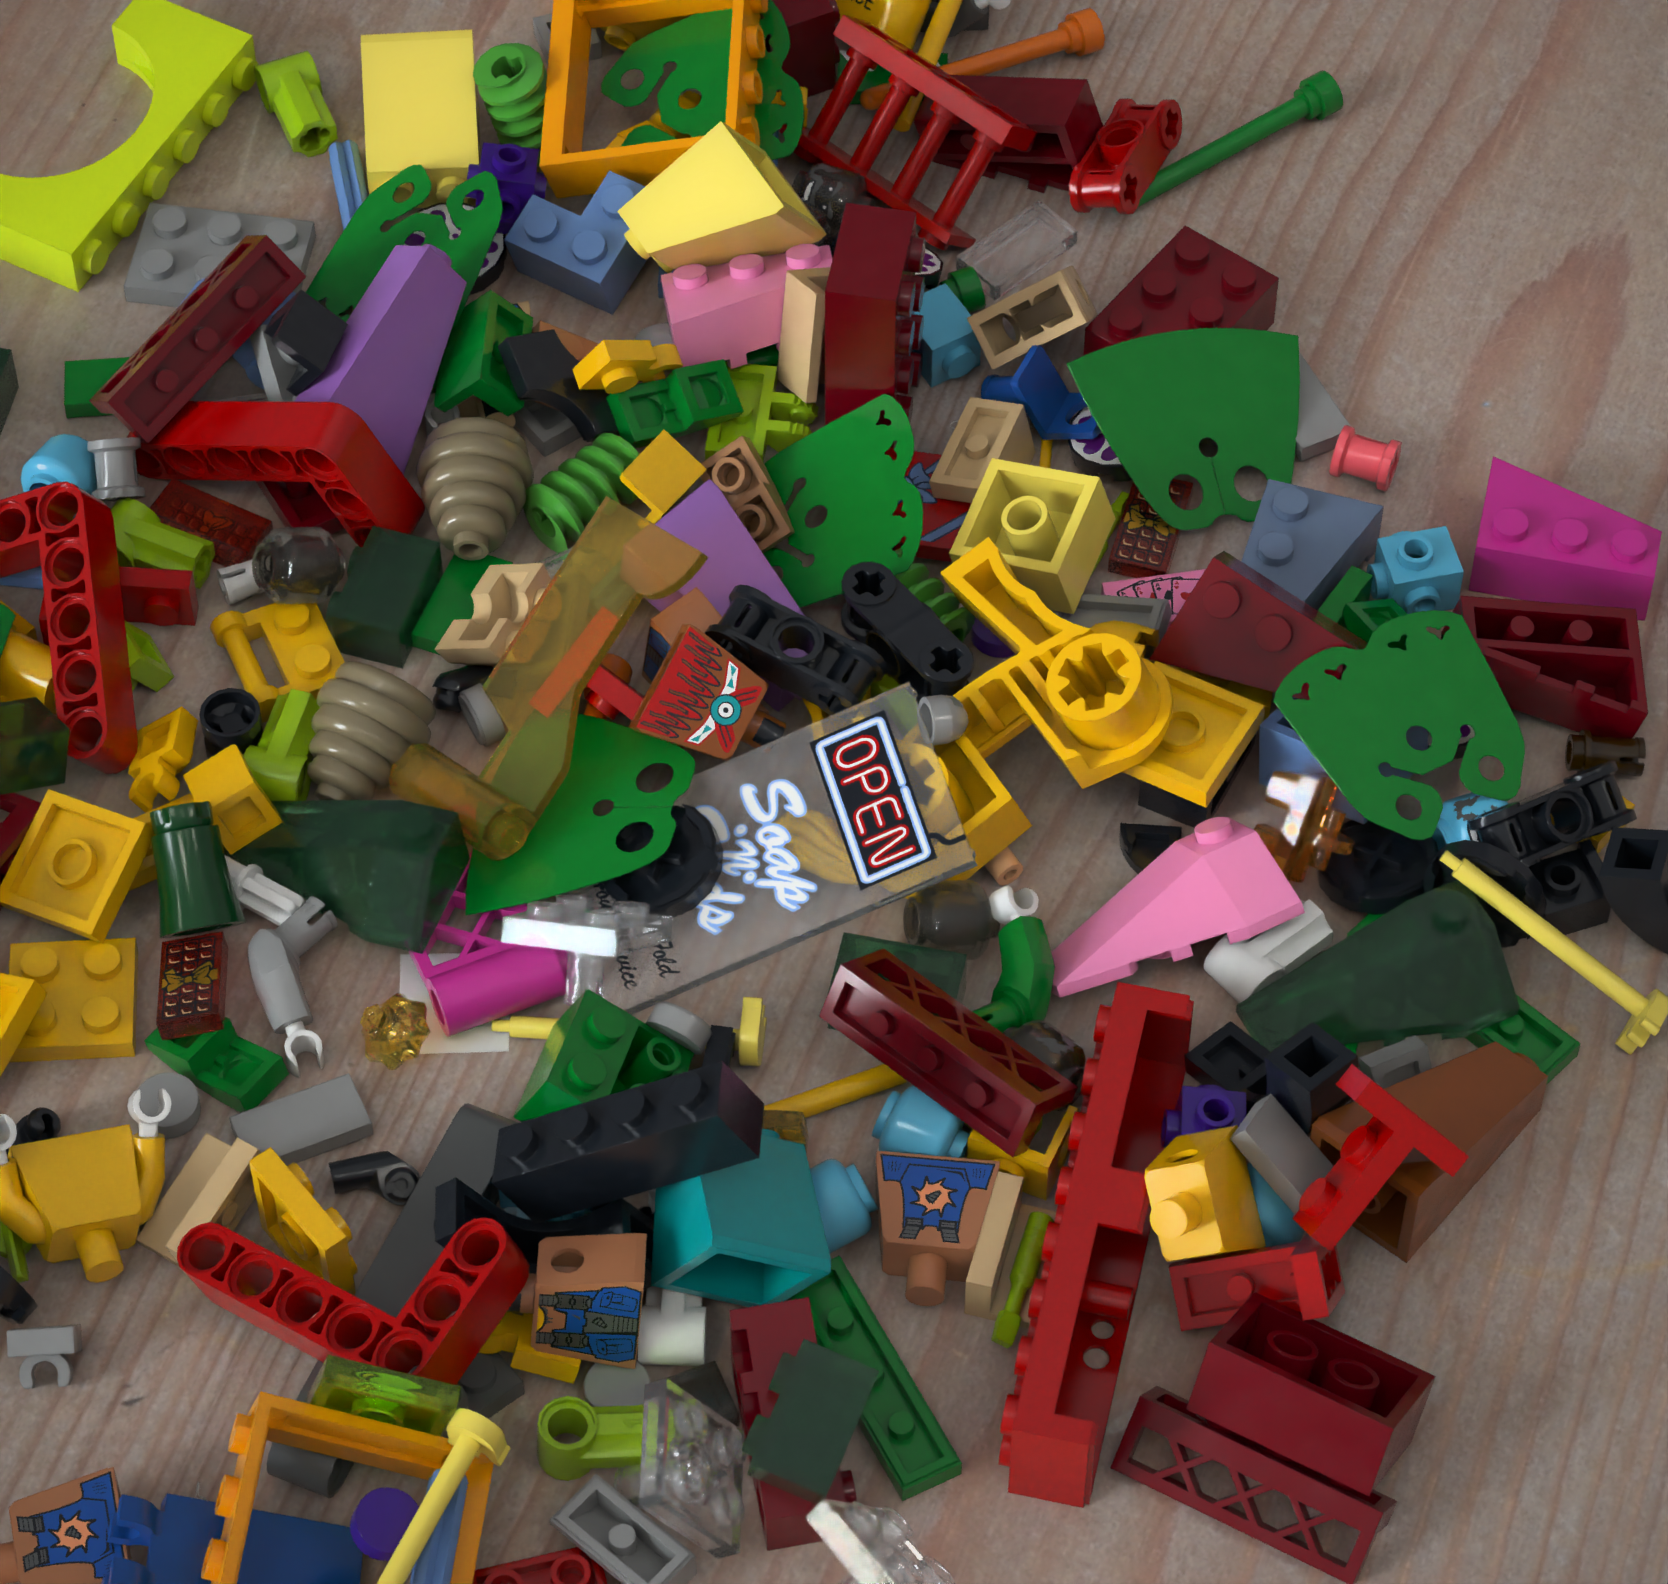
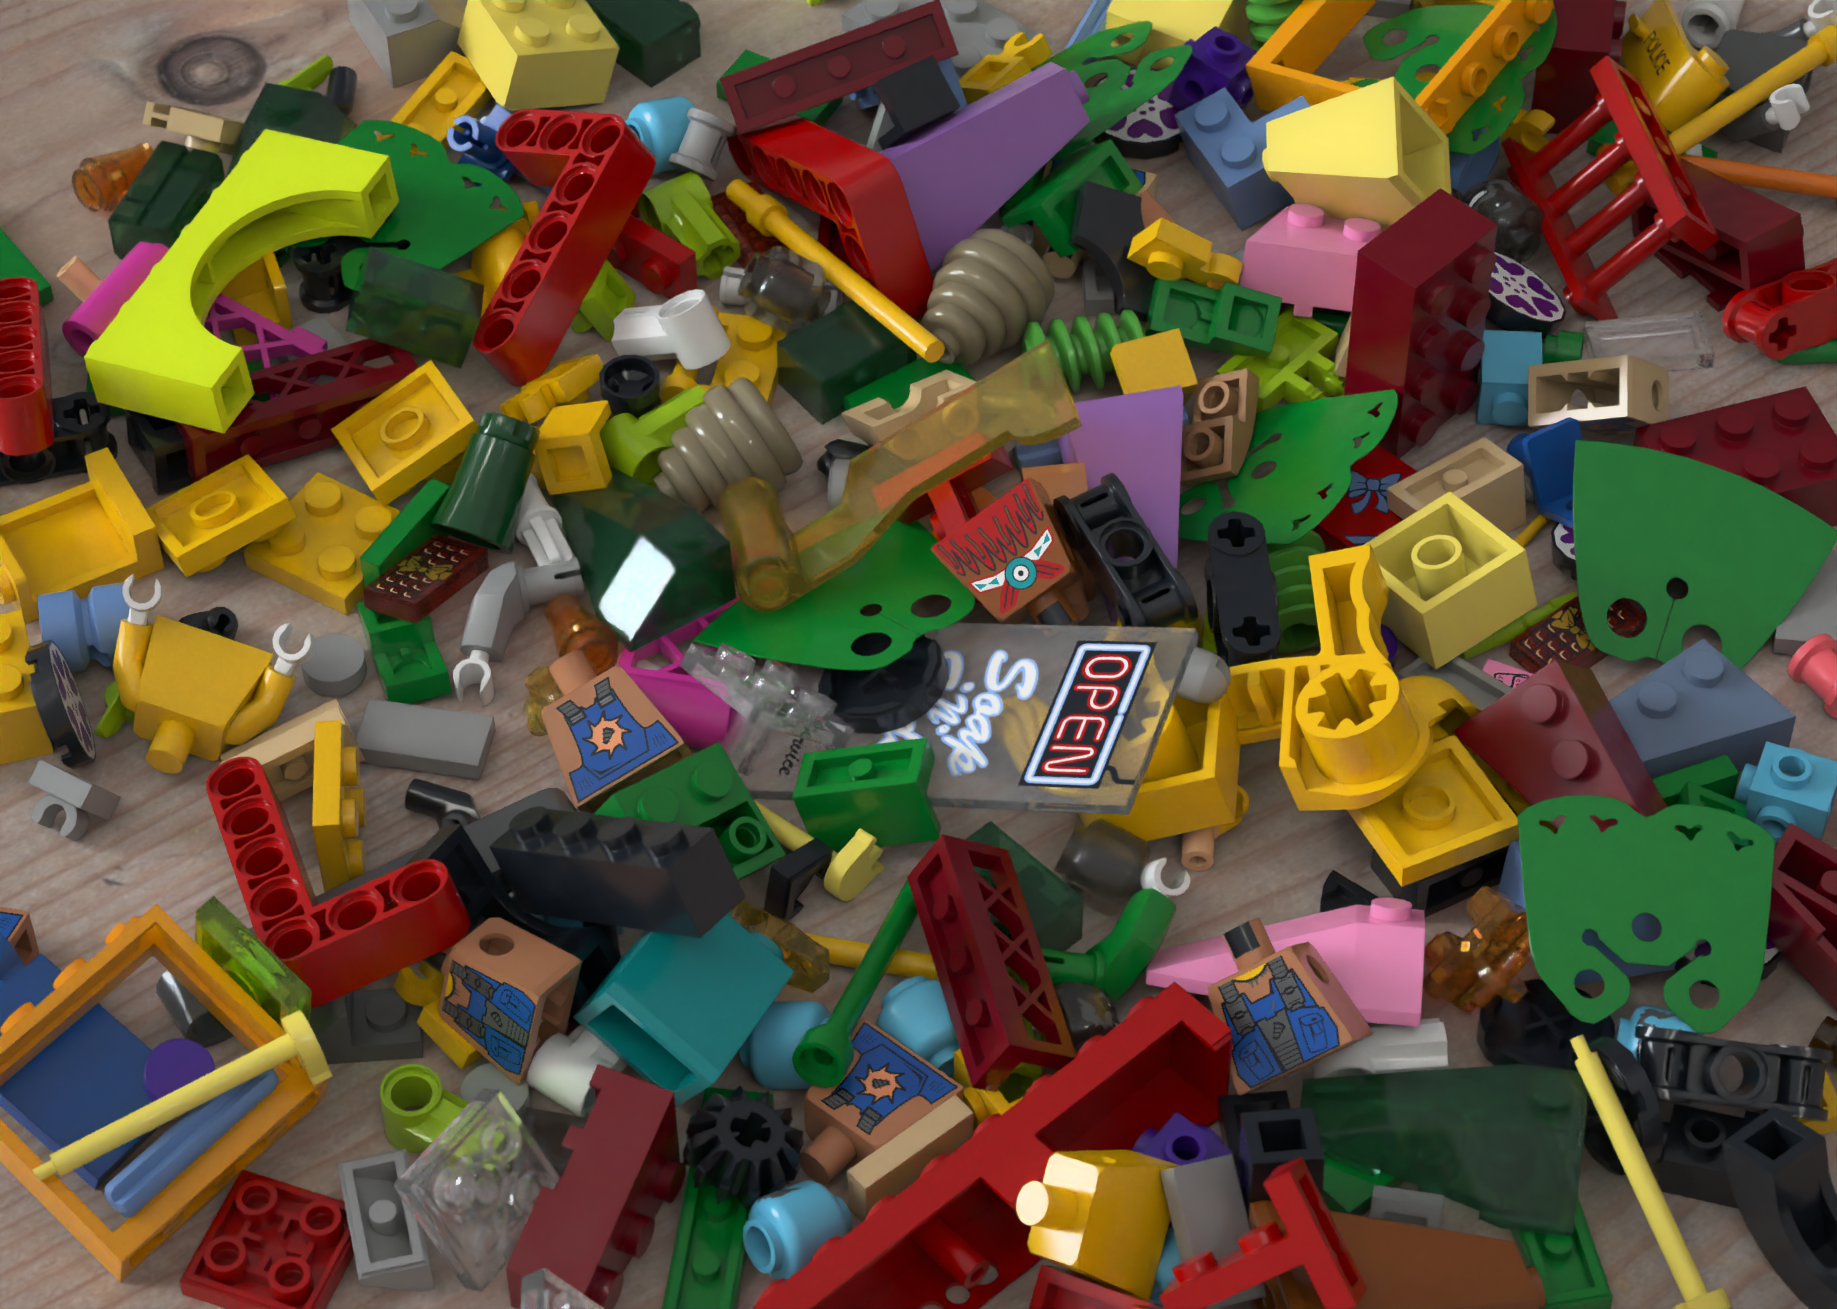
camera: 35 degrees right, 5 degrees down
(145, 960) = (405, 532): none -> green tile
(226, 506) = (772, 220): none -> yellow bar
(240, 645) = (678, 329): none -> white piece
(323, 264) = (1011, 64): none -> yellow plate
(367, 965) = (579, 629): none -> clear orange cone
(475, 1032) = (605, 732): none -> torso
(680, 1026) = (783, 821): light grey tile -> none
(727, 960) = (868, 789): none -> green panel
(810, 1422) = (589, 1198): clear green brick -> none
(869, 1311) = (742, 1147): none -> black gear
(879, 1192) = (827, 1049): none -> green piece
(954, 1353) = (791, 1226): none -> medium azure head
(1200, 955) = (1280, 1009): none -> torso

